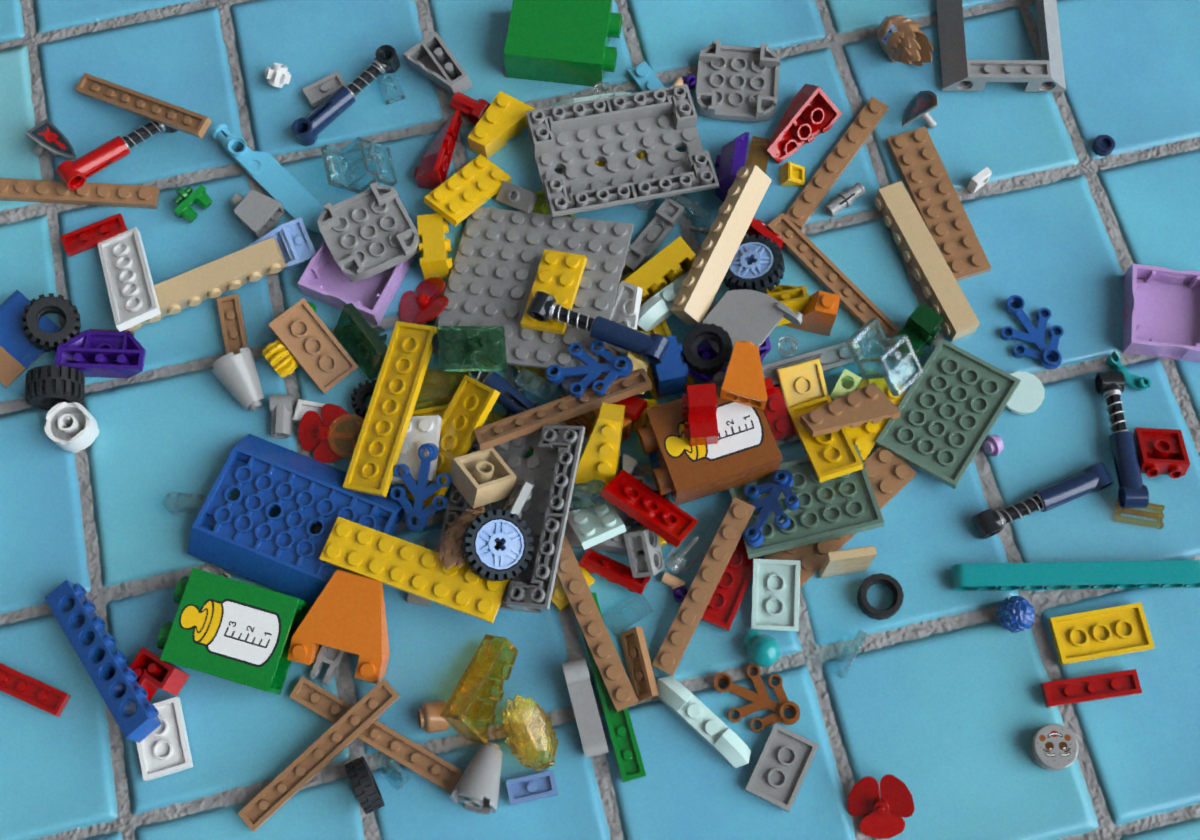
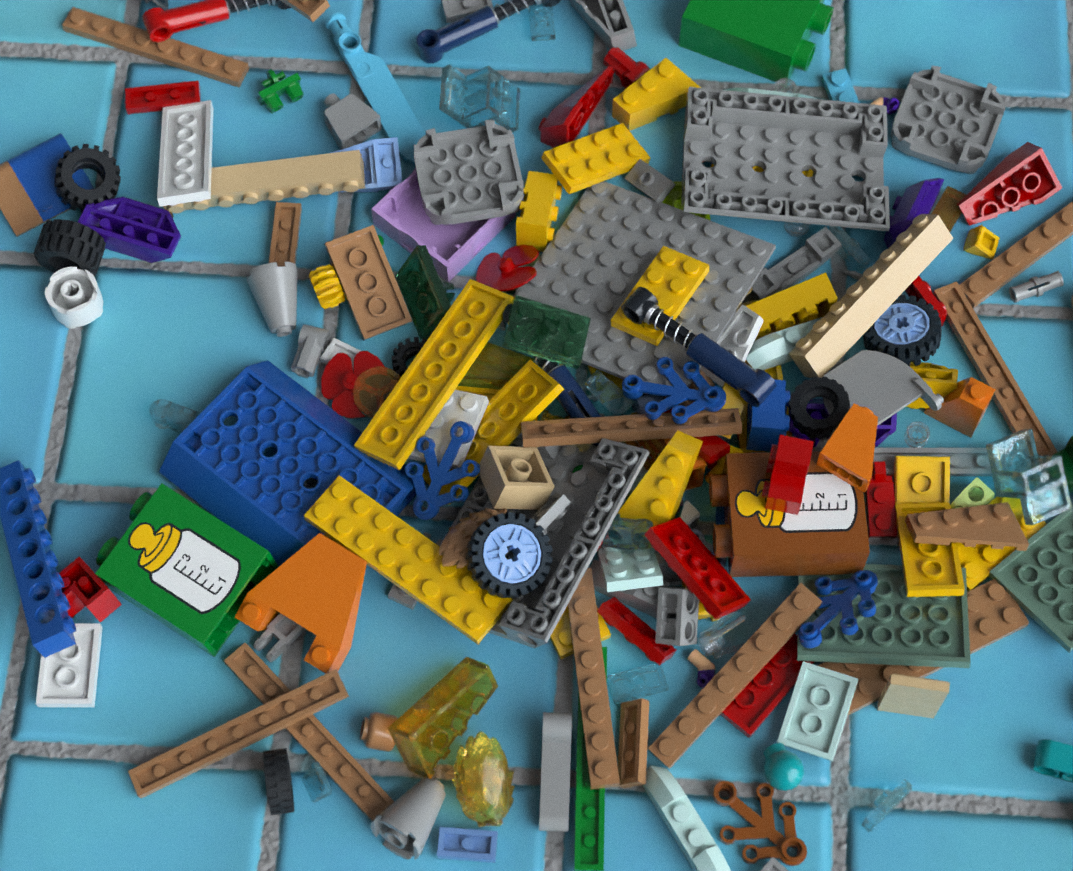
camera: 15 degrees right, 5 degrees down
(890, 582) = (952, 732): black tyre -> none

